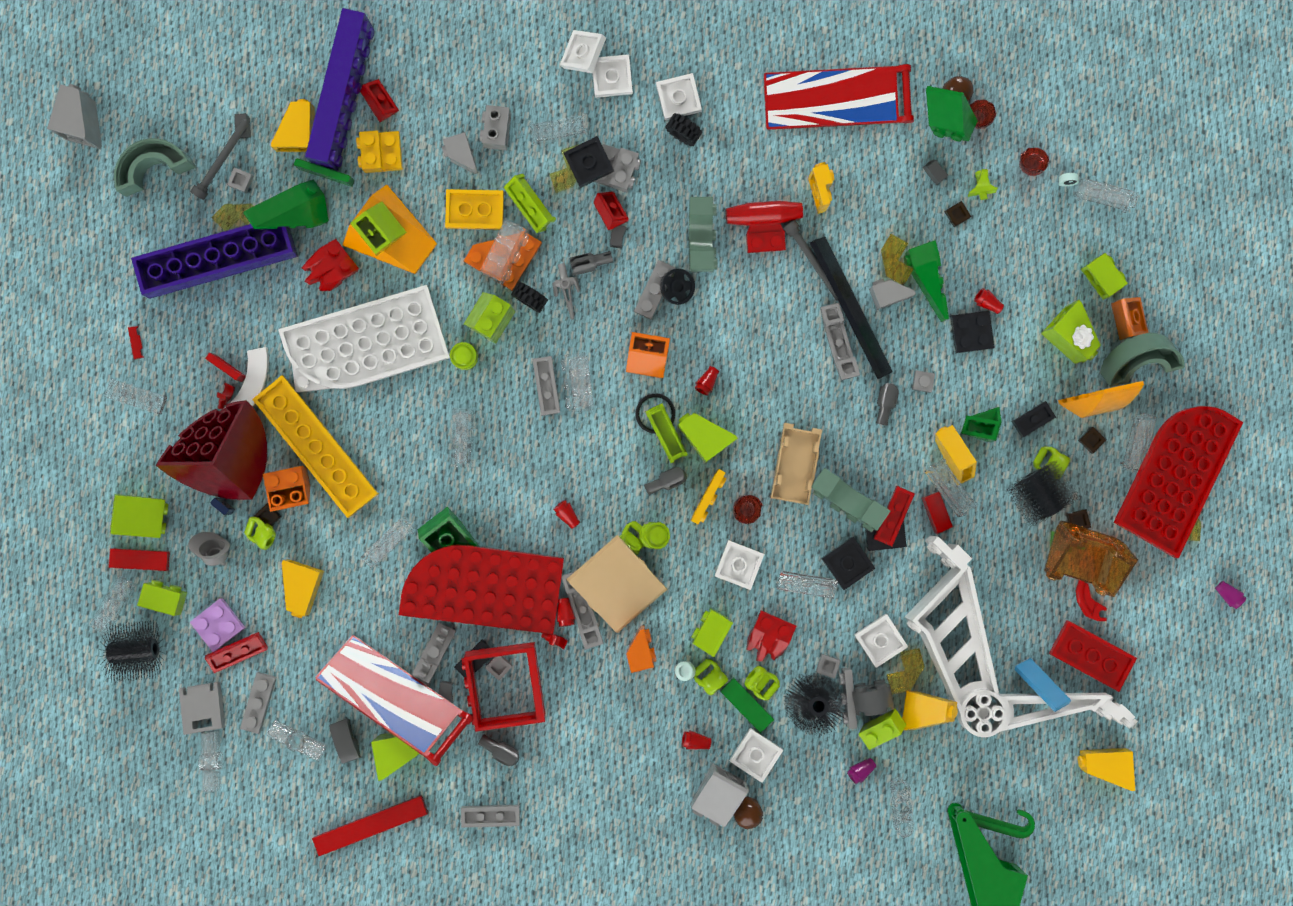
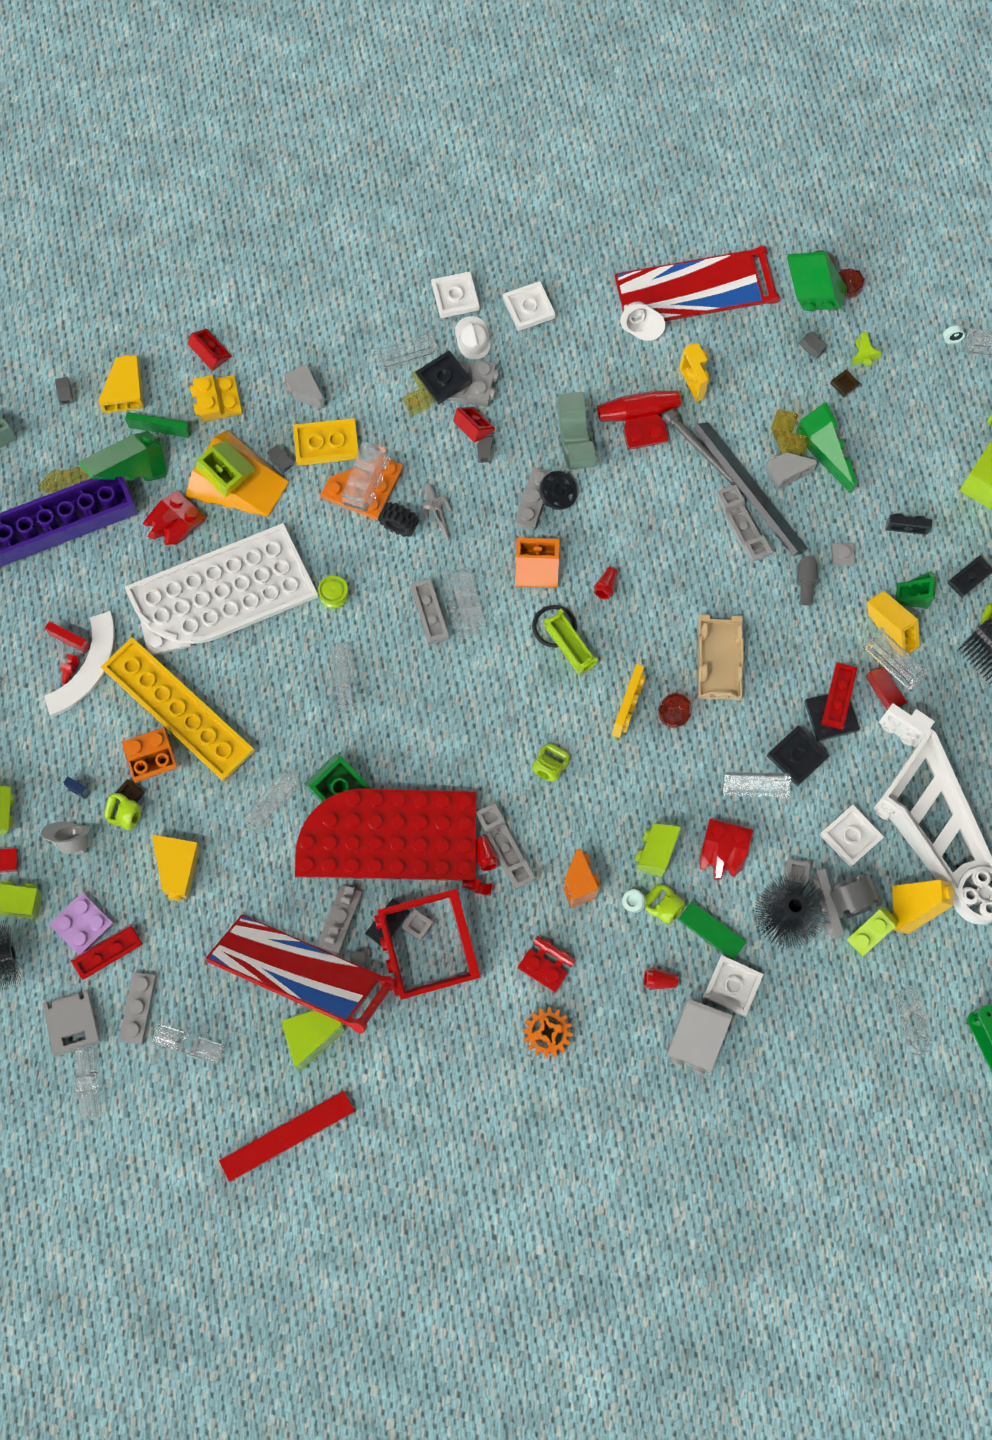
camera: 10 degrees left, 15 degrees down
(200, 190) = (24, 458): dark grey piece -> none
(220, 453) = (70, 727): dark red brick -> none
(240, 180) = (66, 444): light grey plate -> none
(340, 89) = (168, 339): dark purple brick -> none
(343, 740) = (246, 1037): dark grey slope -> none
(431, 220) = (280, 458): none -> dark grey piece
(490, 316) = (358, 545): lime slope -> none
(490, 816) = (430, 1102): light grey plate -> none
(496, 127) = (339, 357): light grey brick -> none
(500, 751) = (432, 1023): dark grey arm -> none
(528, 203) = (384, 427): lime container -> none
(566, 514) = (471, 744): red cone -> none
(583, 51) = (421, 273): white plate -> none
(589, 262) = (458, 478): dark grey arm -> none
(599, 718) = (542, 970): none -> red plate
(602, 772) = (557, 1029): none -> orange gear
(617, 584) = (540, 812): tan piece -> none
(622, 120) = (472, 337): none -> white piece
(654, 535) = (575, 753): lime wheel -> none
(667, 480) = (579, 693): dark grey arm -> none
(683, 129) = (539, 334): black tyre -> none
(704, 435) = (614, 636): lime slope -> none
(739, 565) = (675, 774): white plate -> none
(749, 813) = (735, 1056): reddish brown hair -> none
(758, 679) = (719, 900): lime piece -> none
(780, 128) = (642, 321): none -> white piece
(850, 501) = (783, 686): sand green brick -> none
(861, 770) = (857, 987): magenta cone -> none
(905, 680) = (894, 861): clear yellow tile -> none
(972, 332) = (885, 497): black plate -> none
(987, 300) = (894, 462): red cone -> none
(994, 363) = (906, 524): none -> black plate
(1033, 161) = (913, 321): clear red hair -> none

